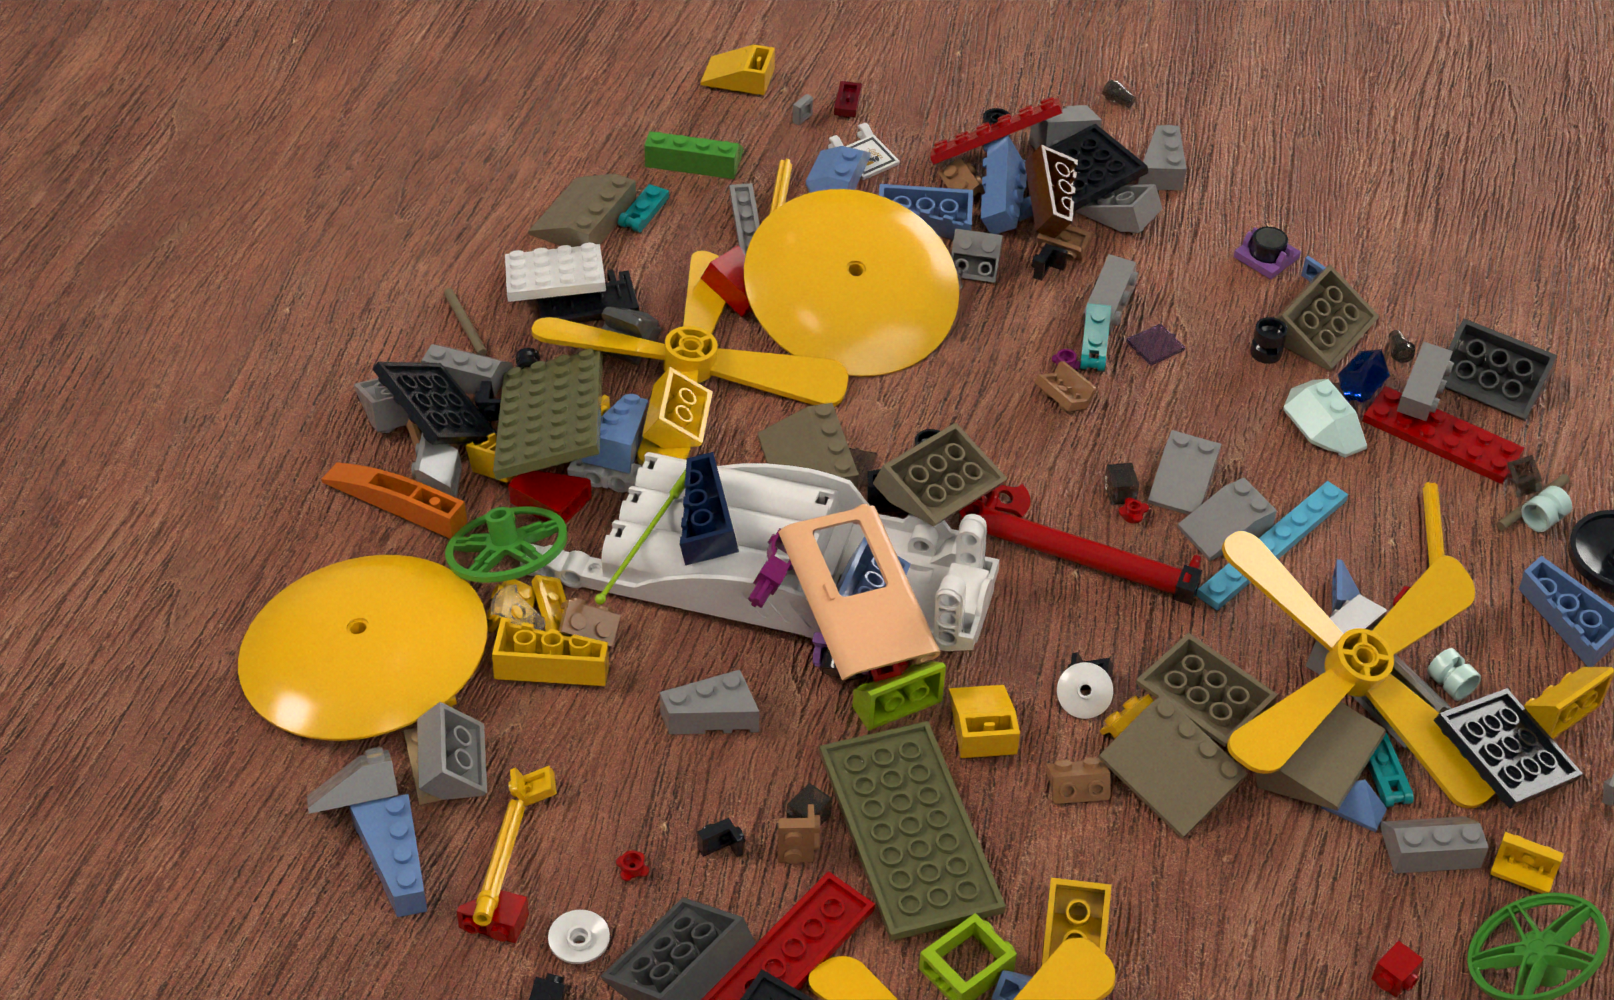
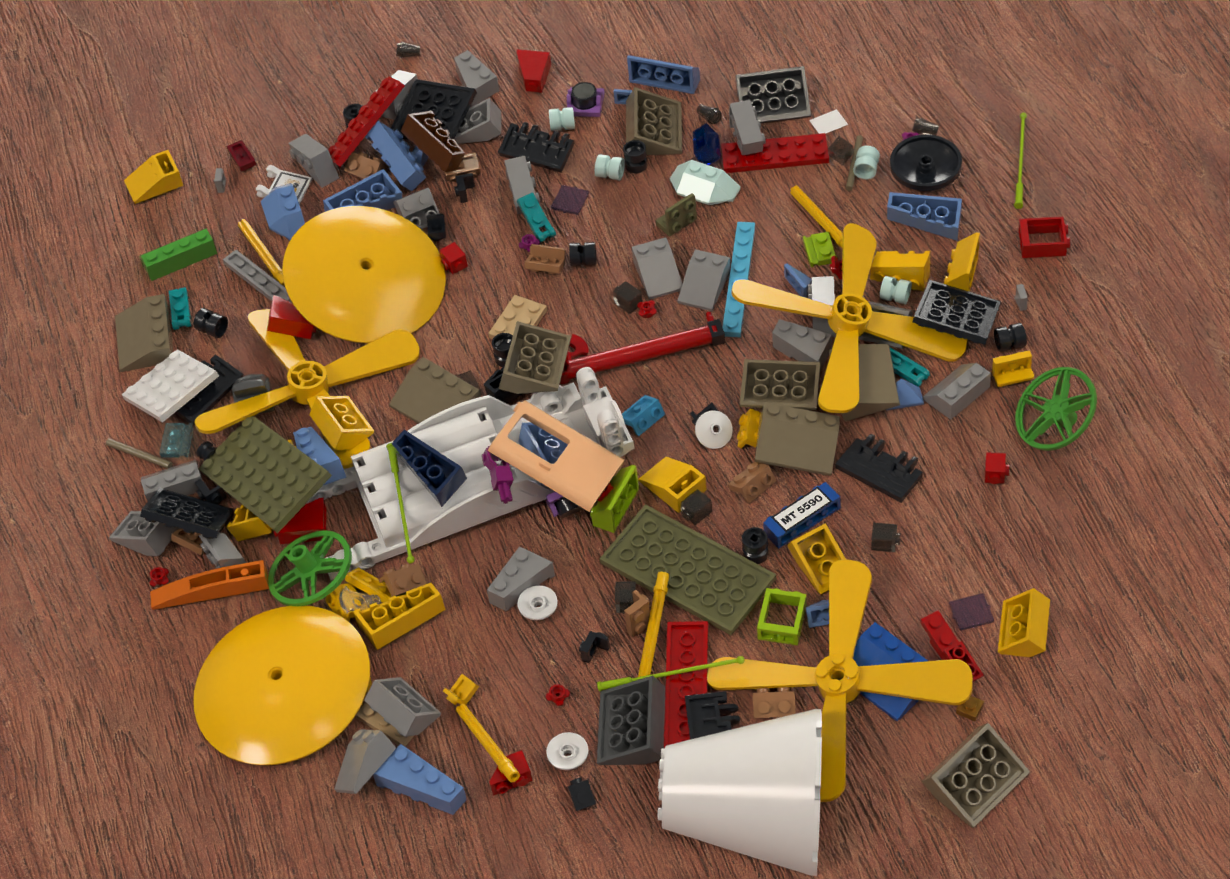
camera: 30 degrees left, 5 degrees up
(360, 453) = (158, 572): none -> red plate
(509, 331) = (176, 440): none -> clear light blue plate
(656, 238) = (210, 323): none -> black wheel
(697, 895) = (617, 682): none -> lime piece
(706, 738) = (537, 596): none -> white dish
(849, 829) = (660, 590): none -> yellow axle
(915, 142) = (314, 159): none -> light grey wedge
(966, 326) = (453, 258): none -> red brick
(979, 285) = (436, 227): none -> black bracket
(983, 764) = (696, 507): none -> clear smoke brick
(987, 428) = (519, 310): none -> tan plate
(1010, 855) = (755, 545): none -> black wheel
(1020, 621) = (643, 414): none -> dark azure bracket
(1102, 858) = (801, 515): none -> brick
(1114, 407) = (582, 254): none -> black wheel
(1165, 267) = (537, 146): none -> black hinge
(1179, 956) = (885, 537): none -> clear smoke brick
(1221, 254) = (561, 119): none -> light aqua wheel
(1229, 334) = (609, 167): none -> light aqua wheel
(1239, 188) = (534, 69): none -> red slope
(1248, 878) = (881, 472): none -> black hinge
(1261, 430) = (678, 215): none -> olive bracket
(1279, 658) = (801, 342): none -> light grey wedge
(1382, 274) = (663, 74): none -> medium blue slope
(1401, 569) = (819, 249): none -> lime plate
(1492, 657) = (902, 266): none -> yellow wedge
(1542, 439) = (828, 122): none -> white sticker
(1556, 823) = (1009, 337): none -> black wheel

